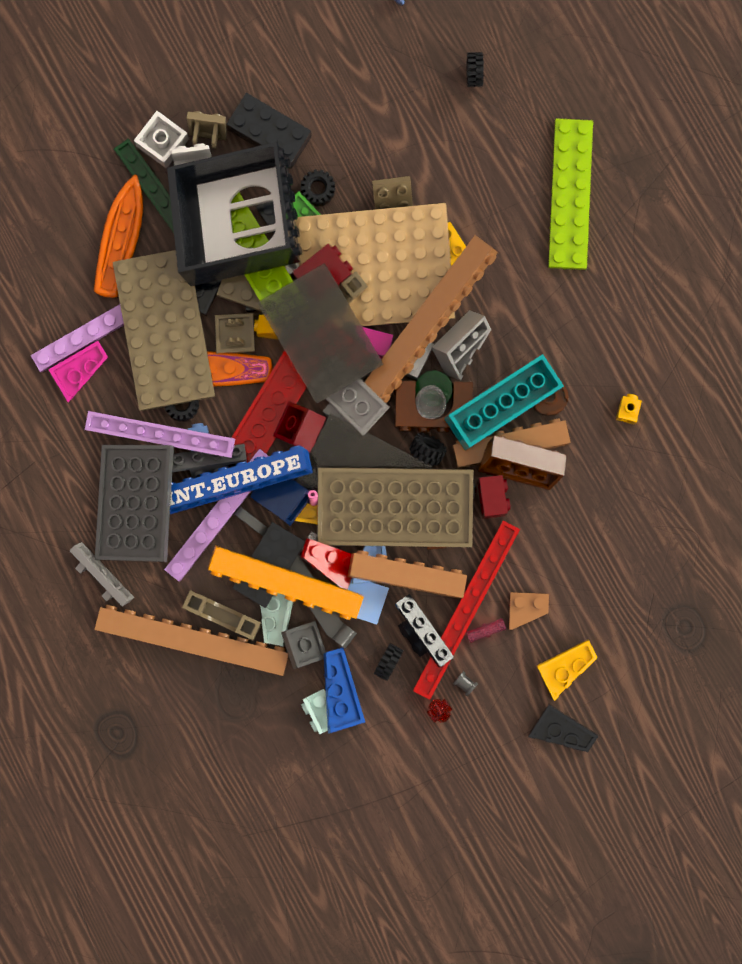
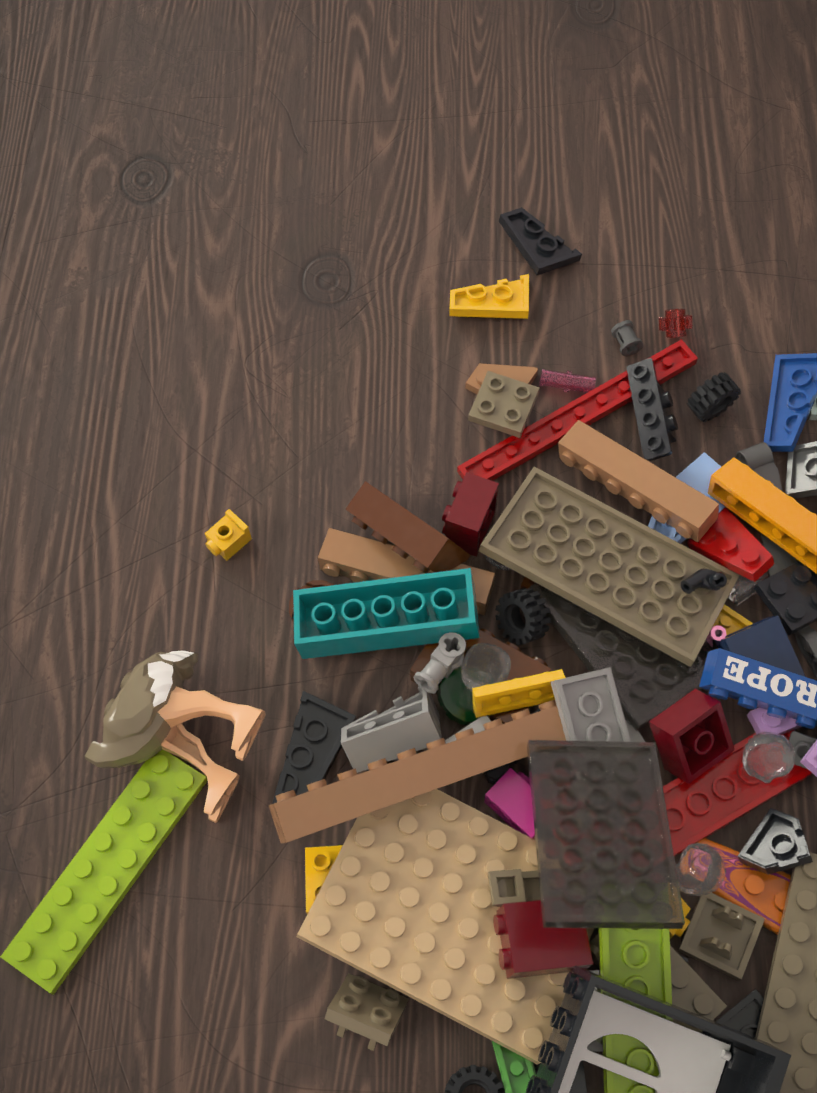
camera: 145 degrees left, 20 degrees down
(227, 393) = (776, 844): none -> plate
(254, 436) = (768, 756): none -> clear hair
(261, 355) = (700, 870): none -> clear hair
(335, 525) = (704, 579): none -> black arm
(406, 395) = (514, 693): none -> yellow plate
(456, 388) = (443, 661): none -> light grey connector
(501, 309) = (313, 744): none -> black wing
(514, 583) = (503, 404): none -> dark tan plate
(595, 278) = (151, 716): none -> animal

